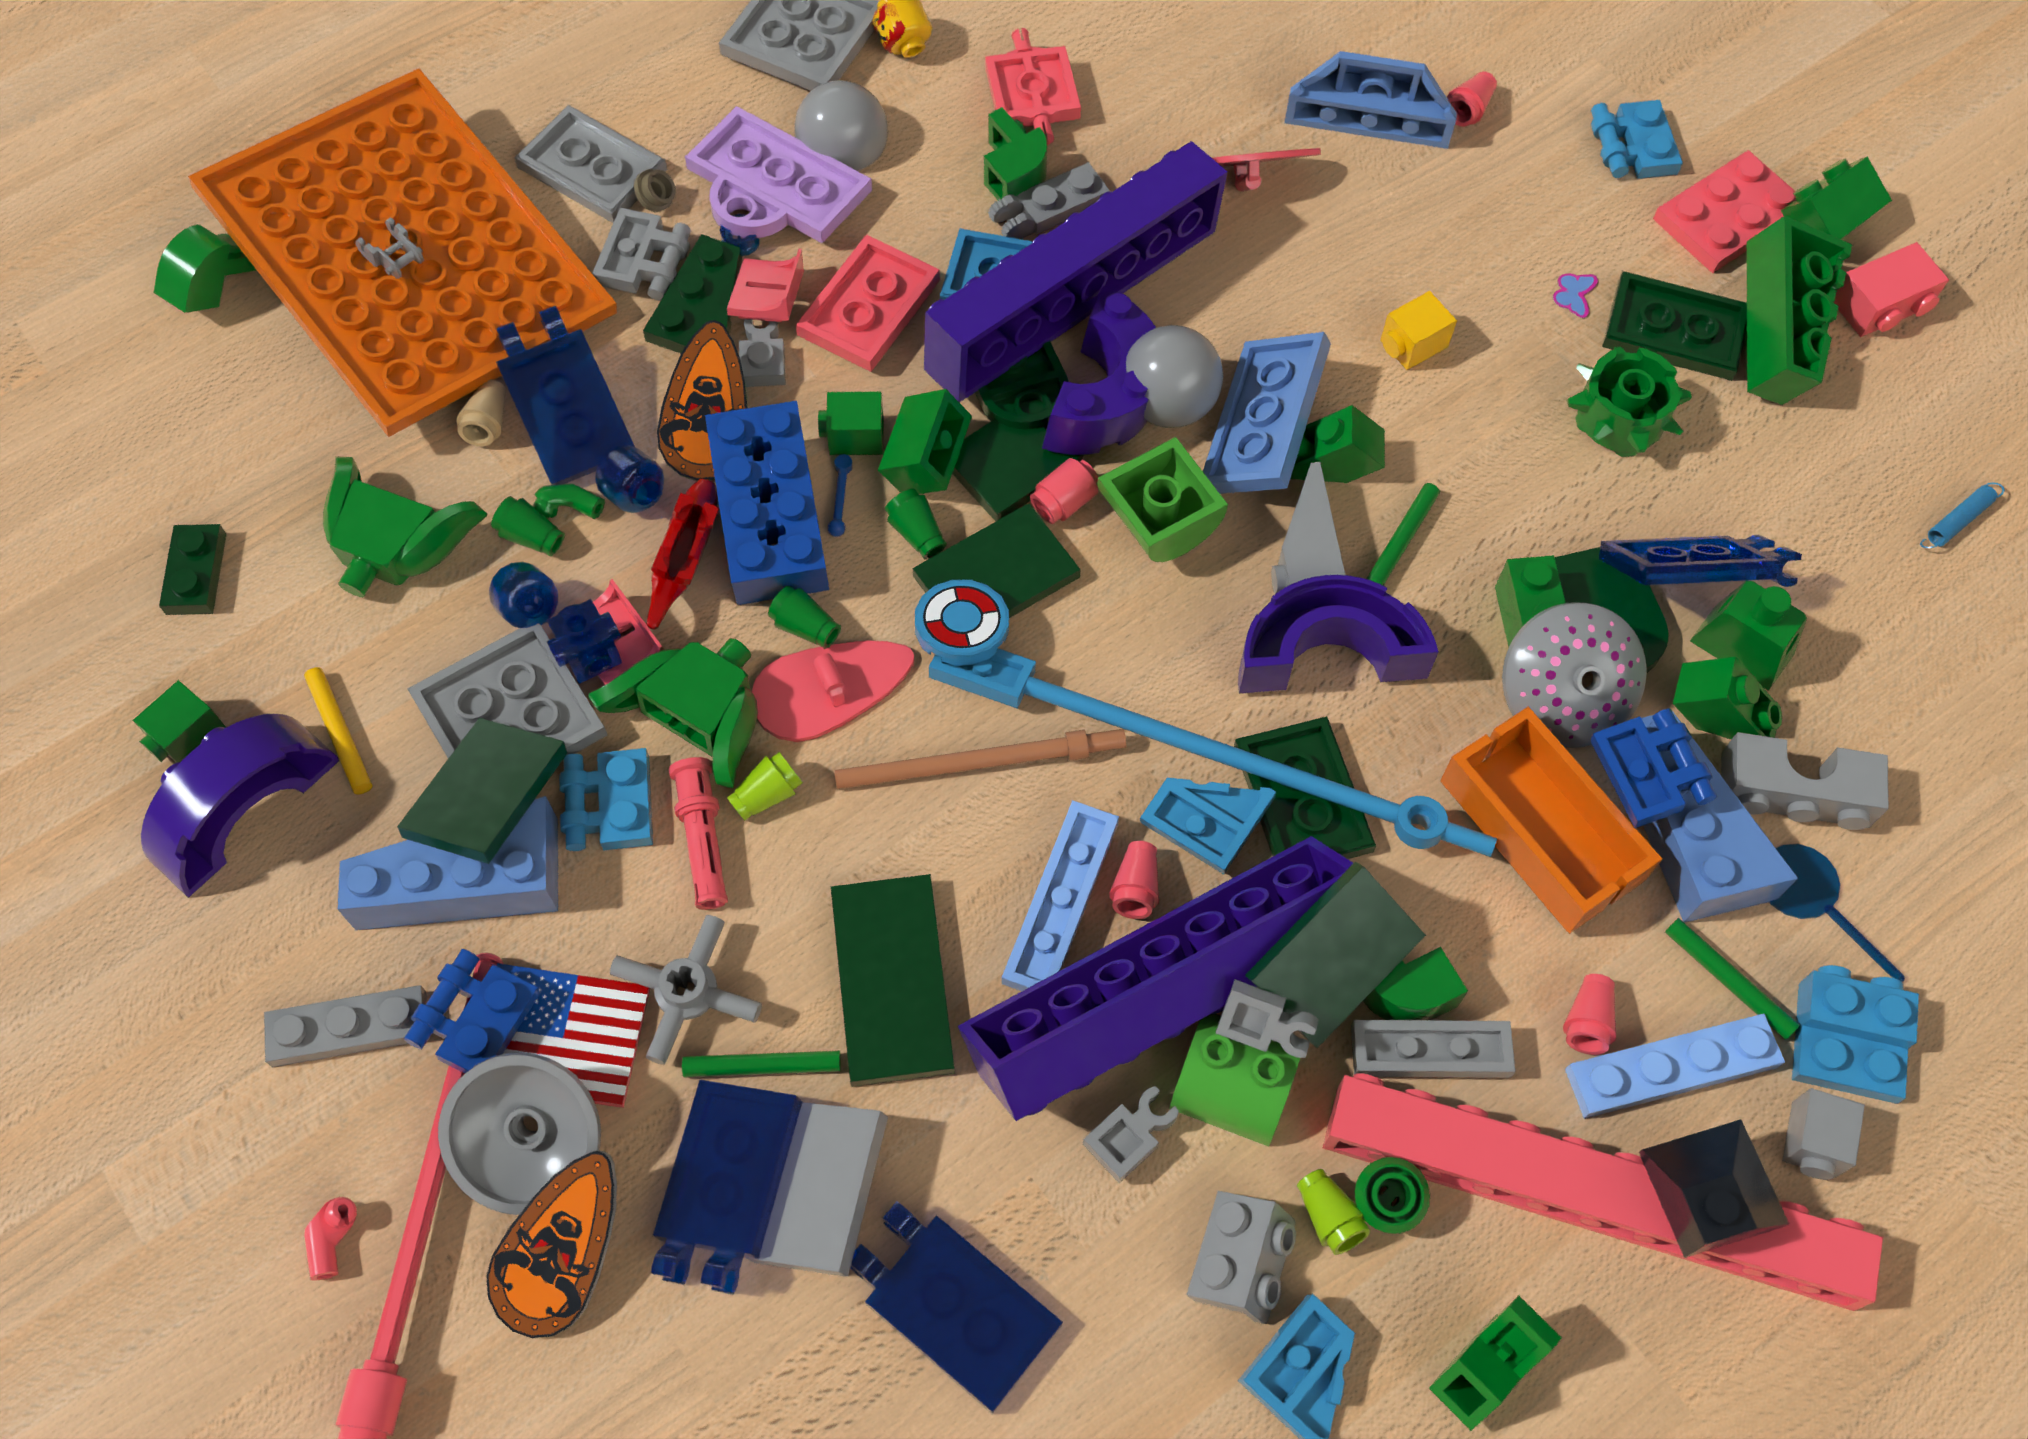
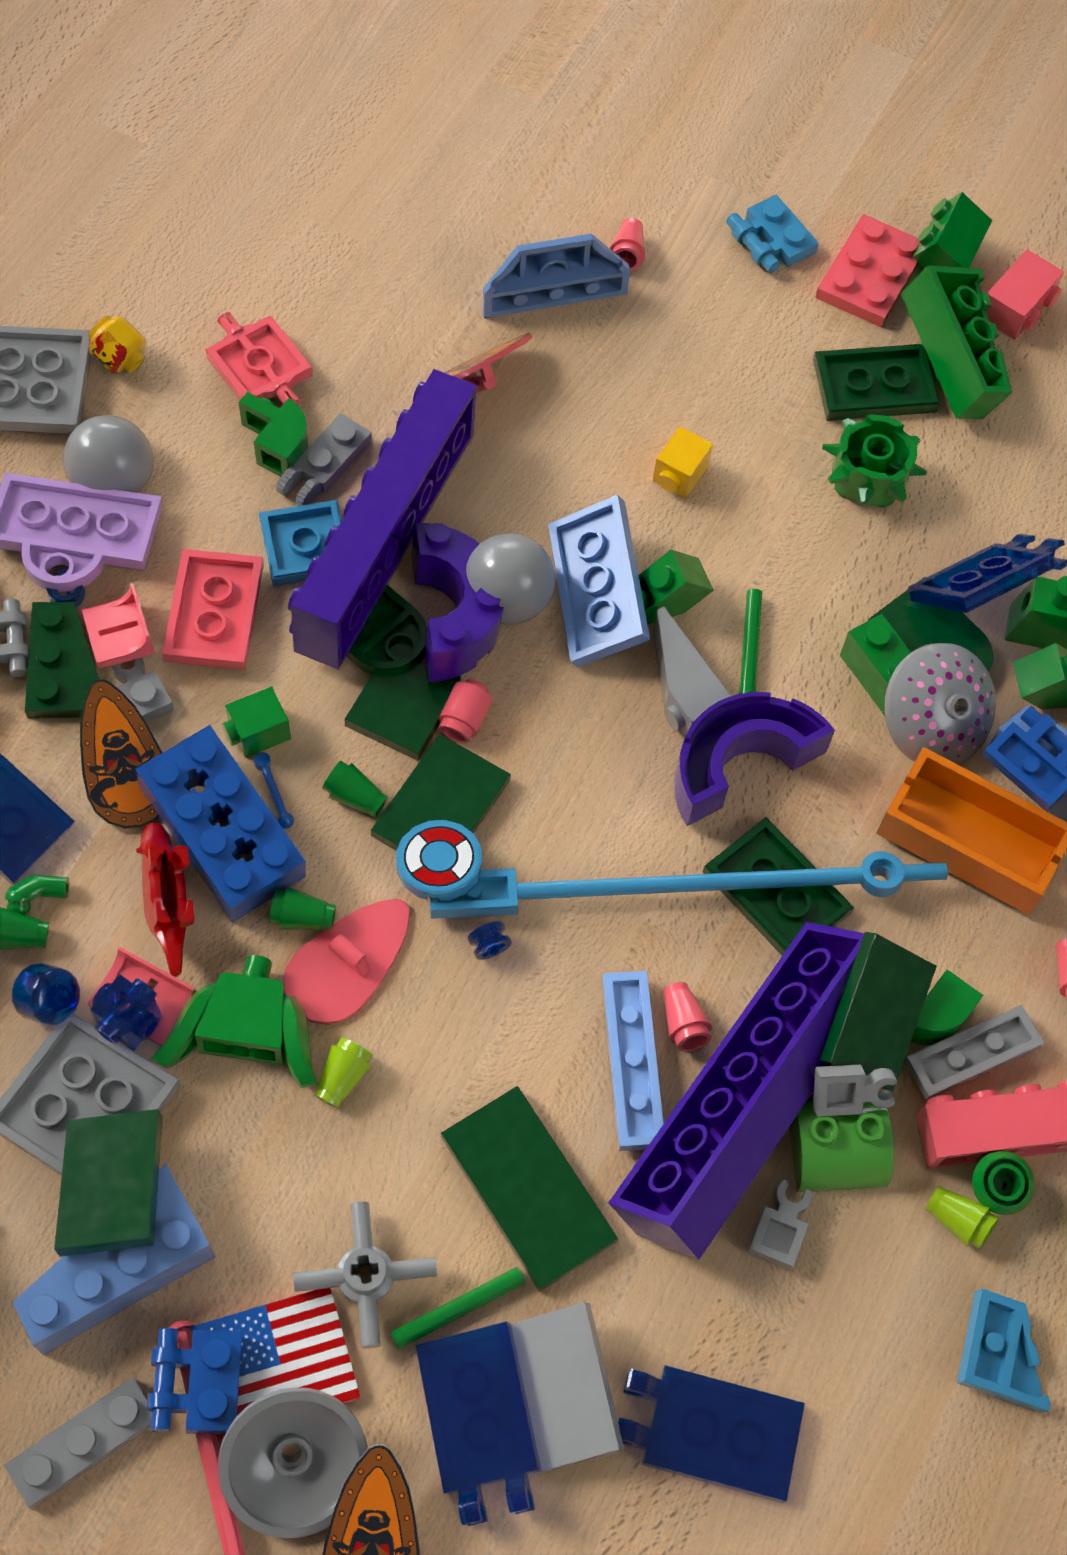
camera: 30 degrees left, 0 degrees up
(623, 800) = (224, 1136): dark azure plate -> none
(630, 479) = (85, 850): clear blue head -> none
(697, 811) = (295, 1117): coral pin -> none
(925, 442) = (329, 716): green brick -> none
(974, 721) = (489, 940): none -> clear blue bush
(1074, 745) = (577, 926): nougat bar -> none
(1164, 501) = (555, 688): bright green brick -> none
(1207, 818) = (716, 942): dark azure wing -> none
(1243, 1256) = (913, 1283): light grey bracket -> none
(1572, 292) = (782, 382): medium blue sticker -> none

